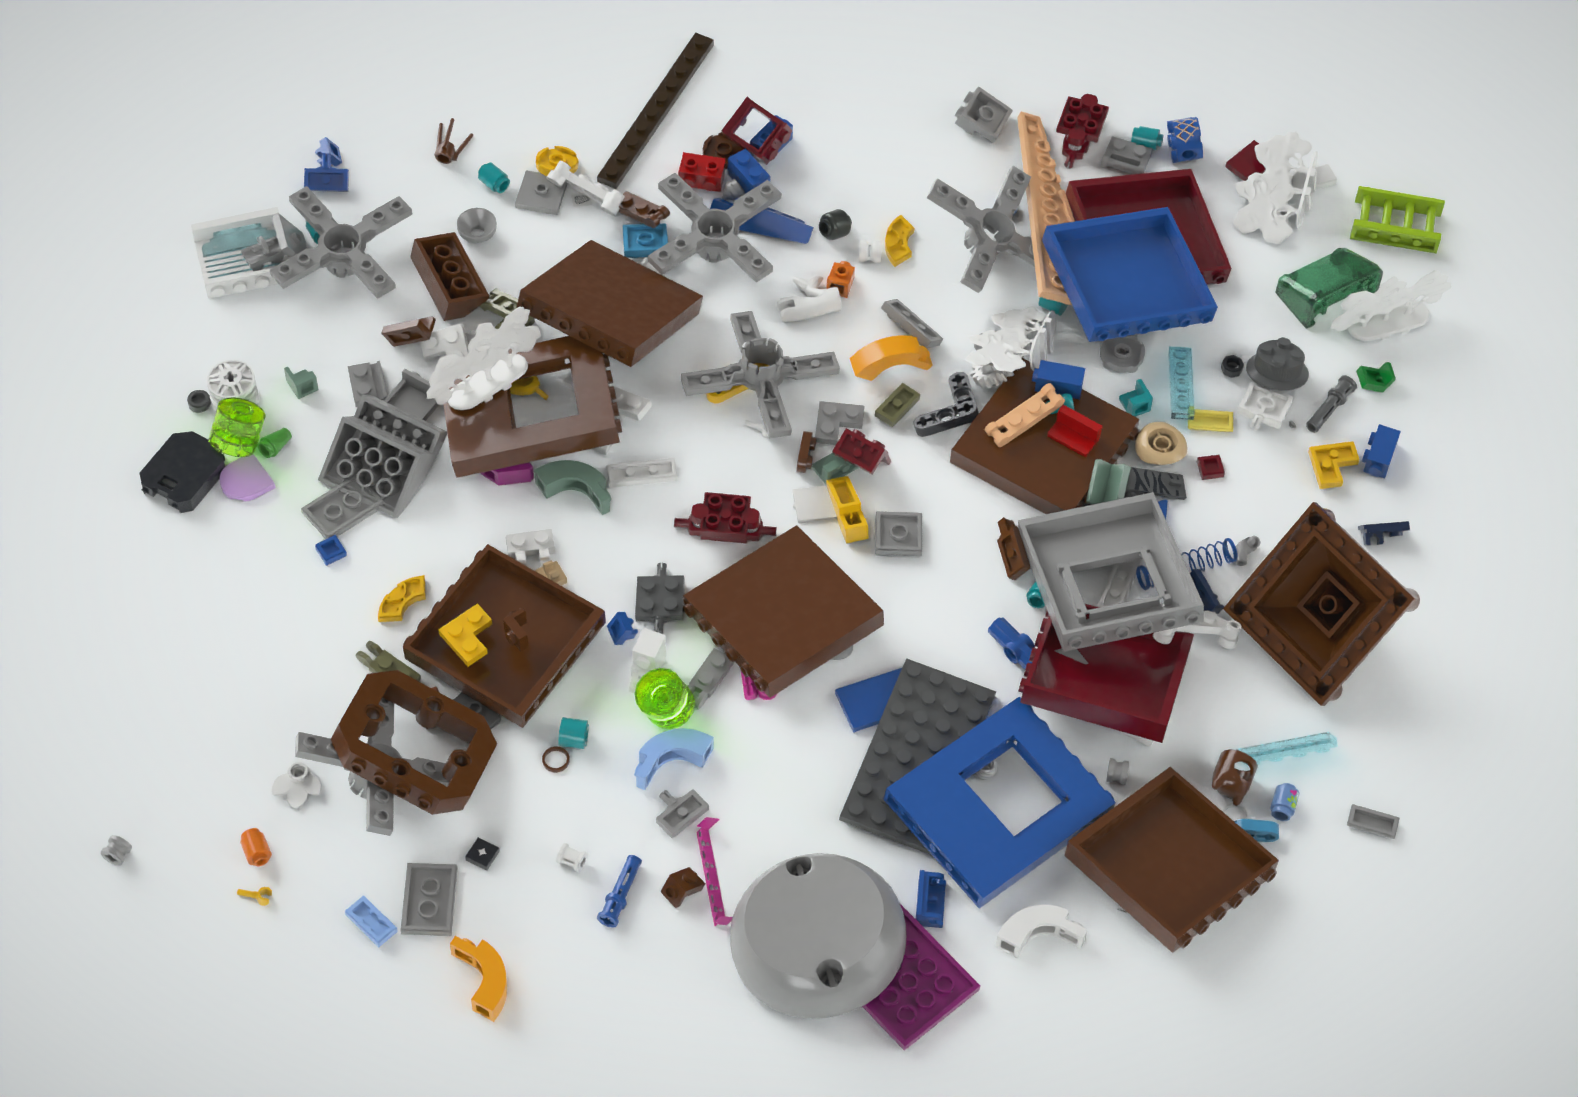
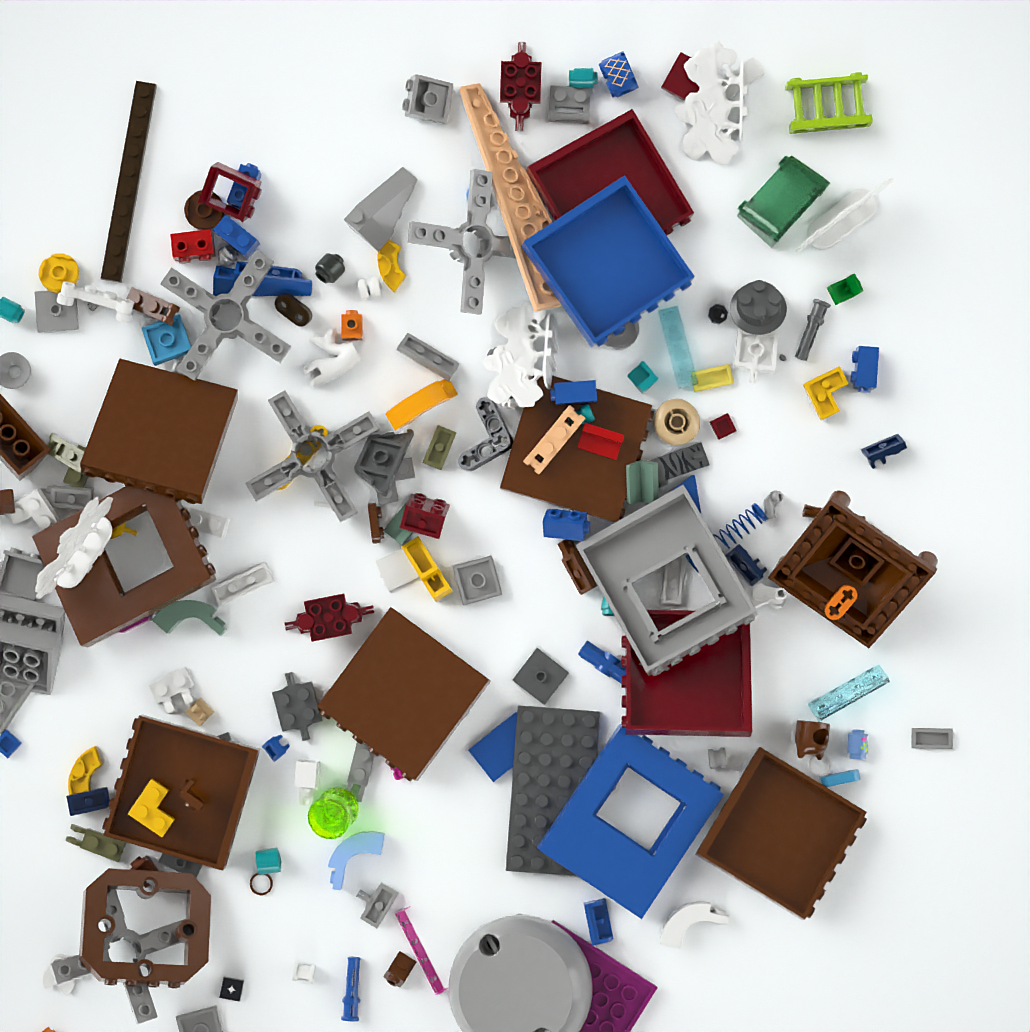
camera: 15 degrees left, 30 degrees up
(396, 620) = (88, 801): none -> dark blue plate
(783, 249) = (292, 309): none -> dark brown plate
(834, 393) = (382, 458): none -> dark grey wing
(898, 192) = (379, 211): none -> light grey wedge
(940, 642) = (540, 676): none -> dark grey plate
(1012, 501) = (565, 524): none -> blue brick
(1298, 635) = (845, 605): none -> orange beam

